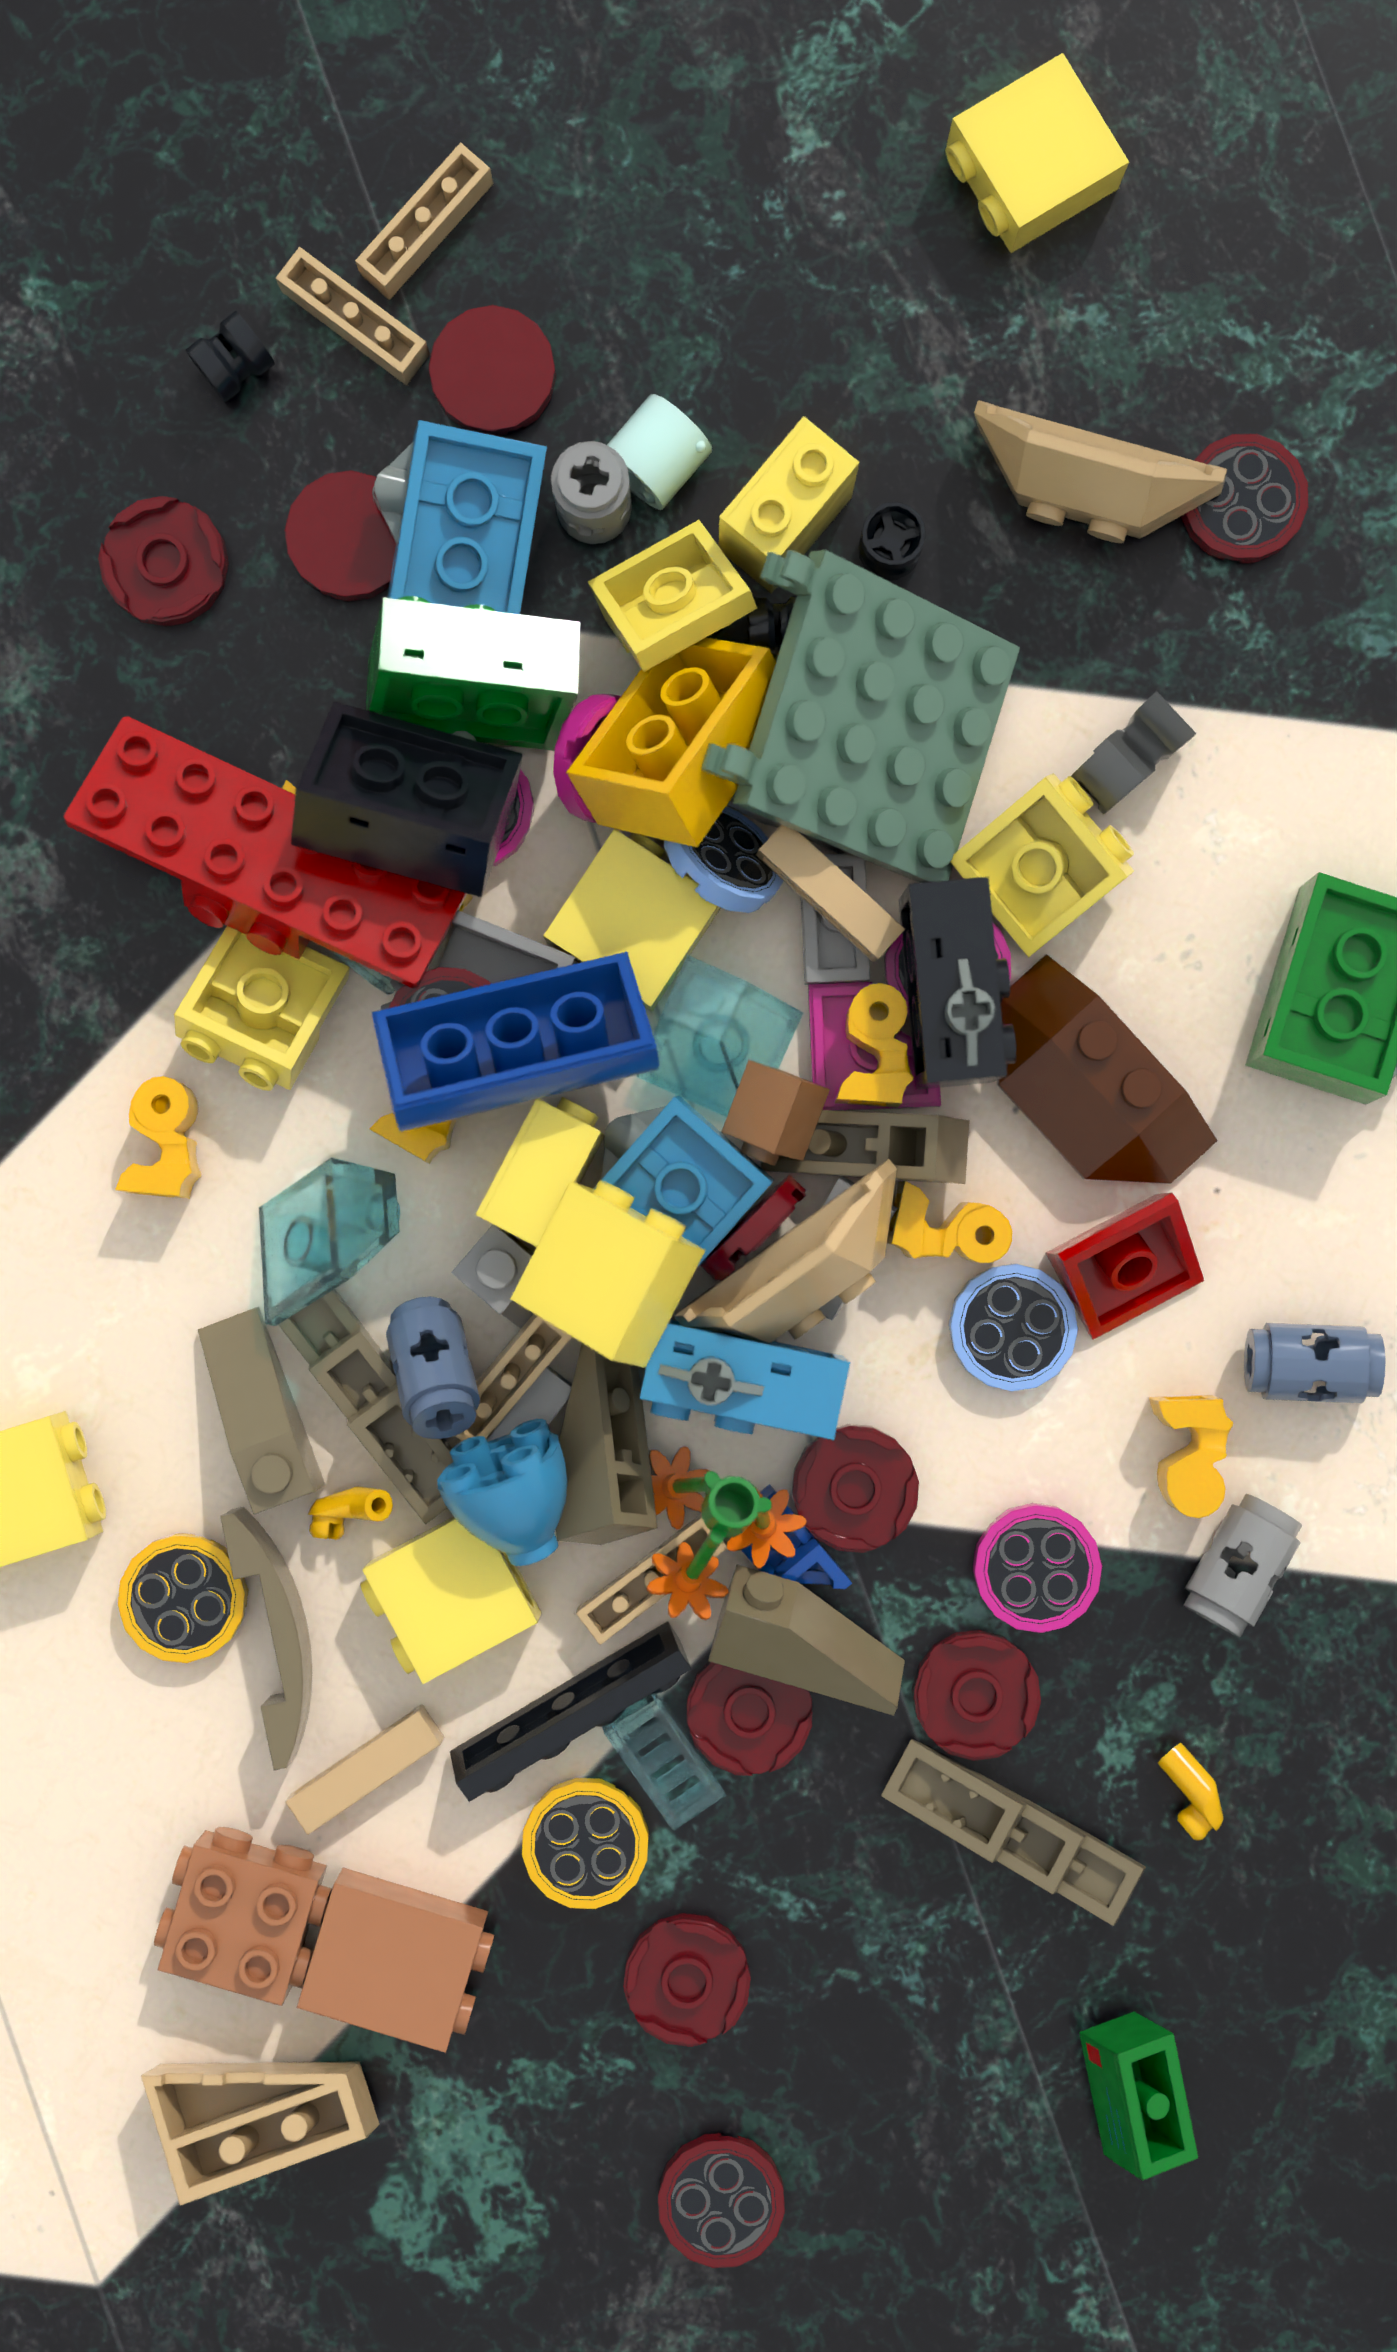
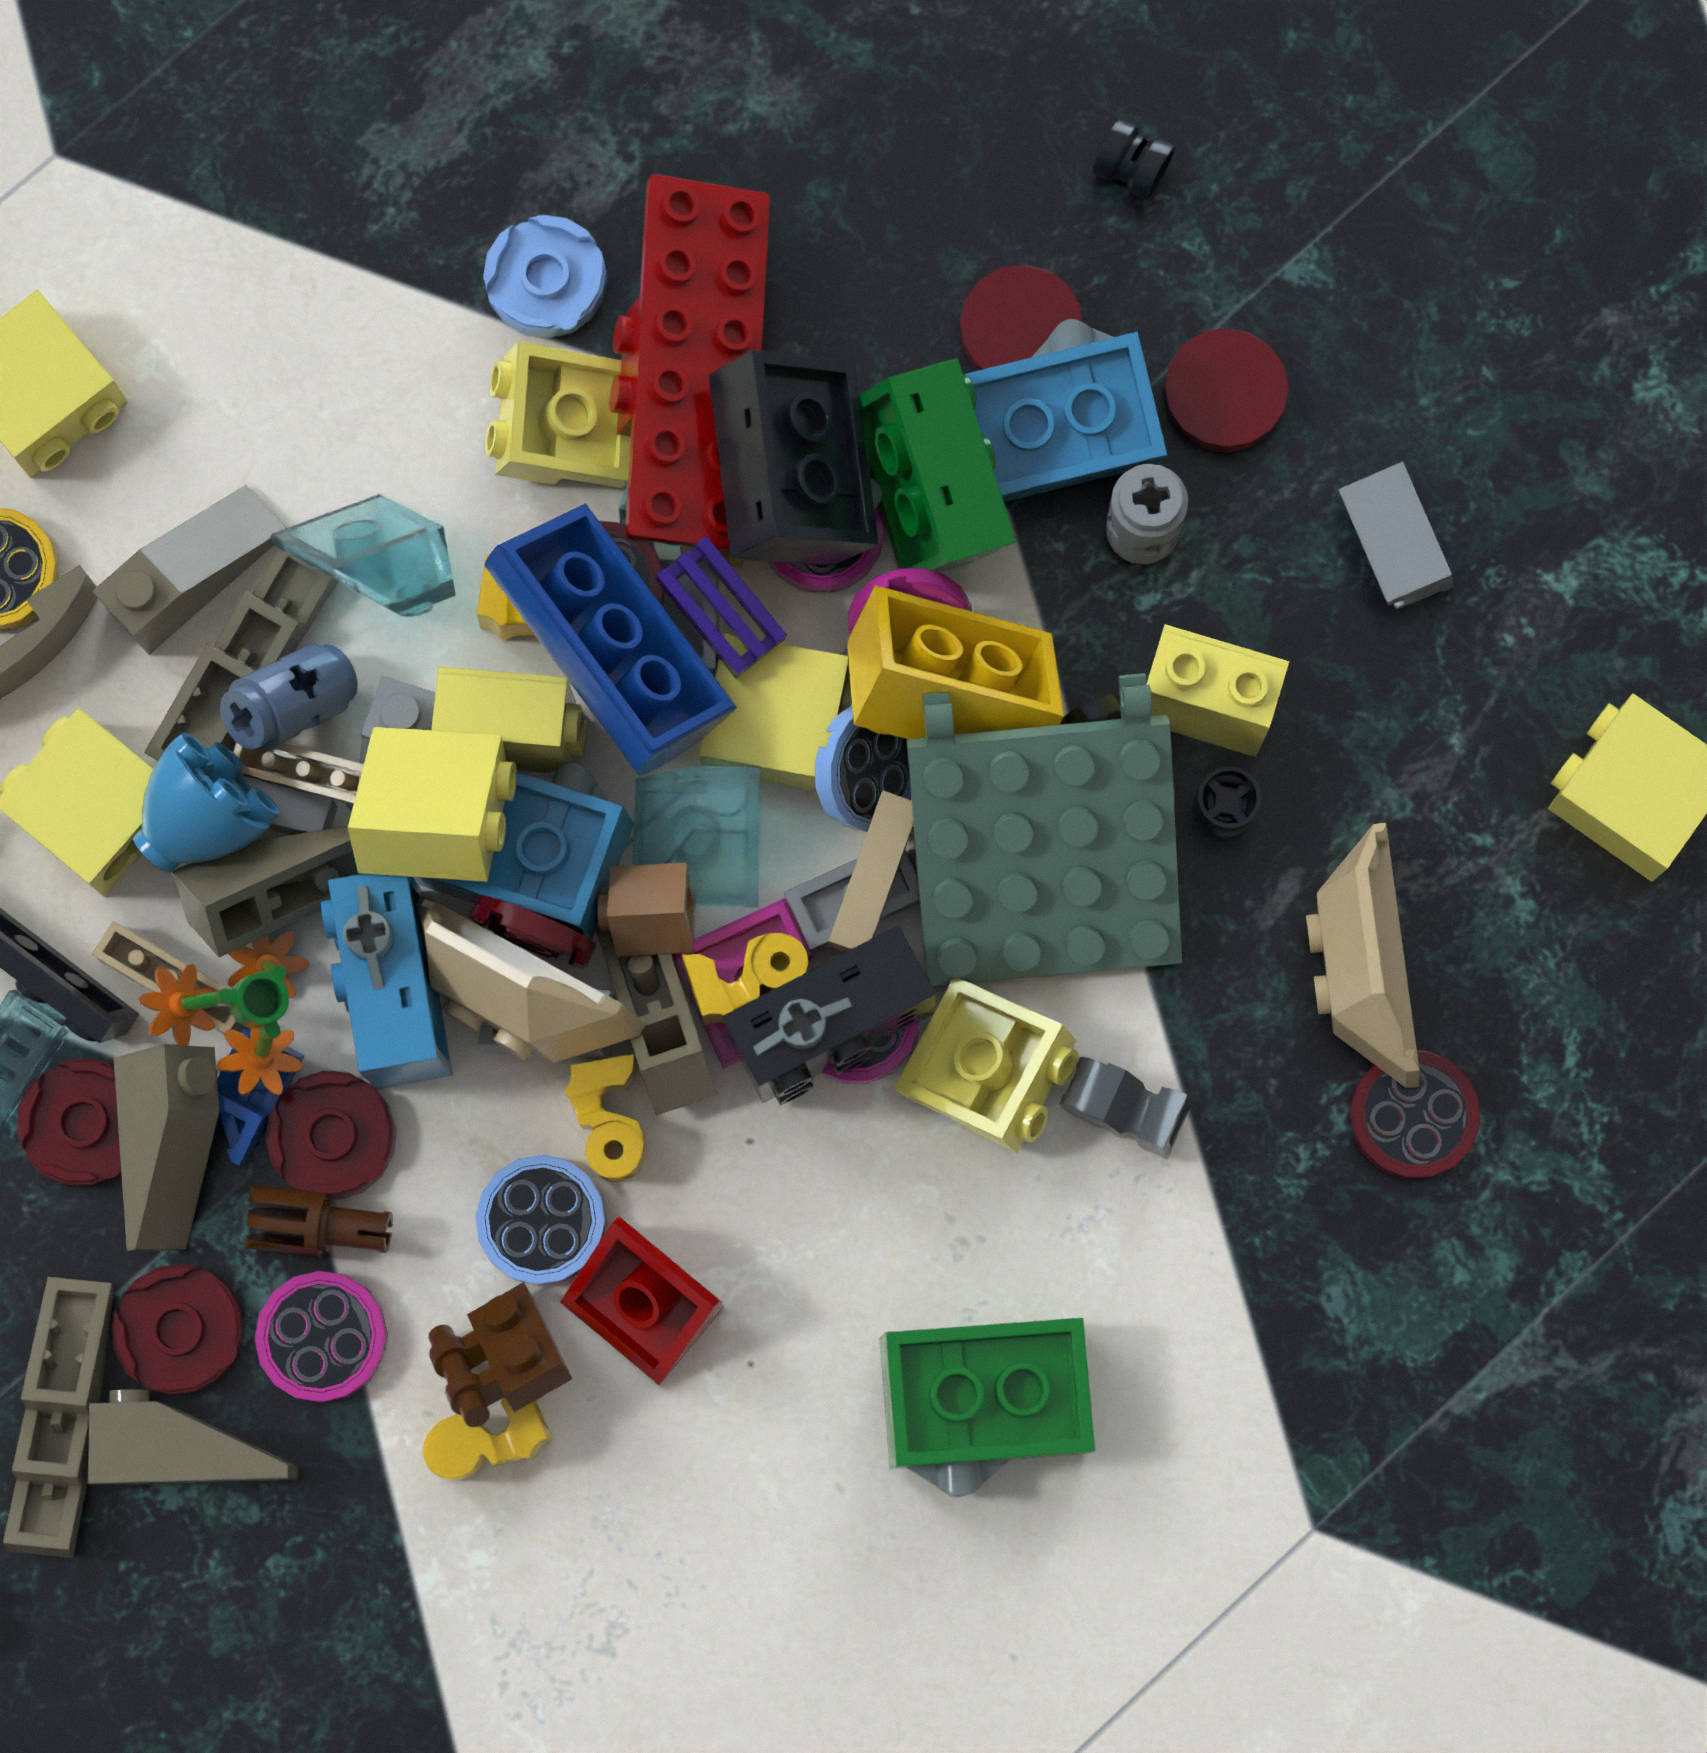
camera: 70 degrees right, 10 degrees down
(108, 965) = (545, 276): none -> light blue tile
(163, 561) = (928, 179): dark red tile -> none
(163, 1113) = (428, 375): yellow leg -> none
(353, 316) = (1219, 250): tan piece -> none
(353, 1503) = (138, 681): yellow arm -> none
(424, 221) = (1332, 277): tan piece -> none
(572, 911) = (688, 564): none -> dark purple tile
(660, 450) = (1213, 559): light aqua piece -> none
(671, 595) = (1083, 620): light yellow plate -> none
(704, 270) = (1397, 536): none -> light grey hinge
(933, 1538) = (321, 1225): none -> reddish brown arm
(1084, 1742) = (162, 1445): none -> dark tan slope
(1096, 1084) = (798, 1199): reddish brown wedge -> none
(1131, 1393) = (518, 1349): none -> reddish brown plate
(1199, 1788) = (168, 1576): yellow arm -> none
(1245, 1529) = (366, 1516): light grey piece -> none
(1343, 1358) = (626, 1546): sand blue piece -> none

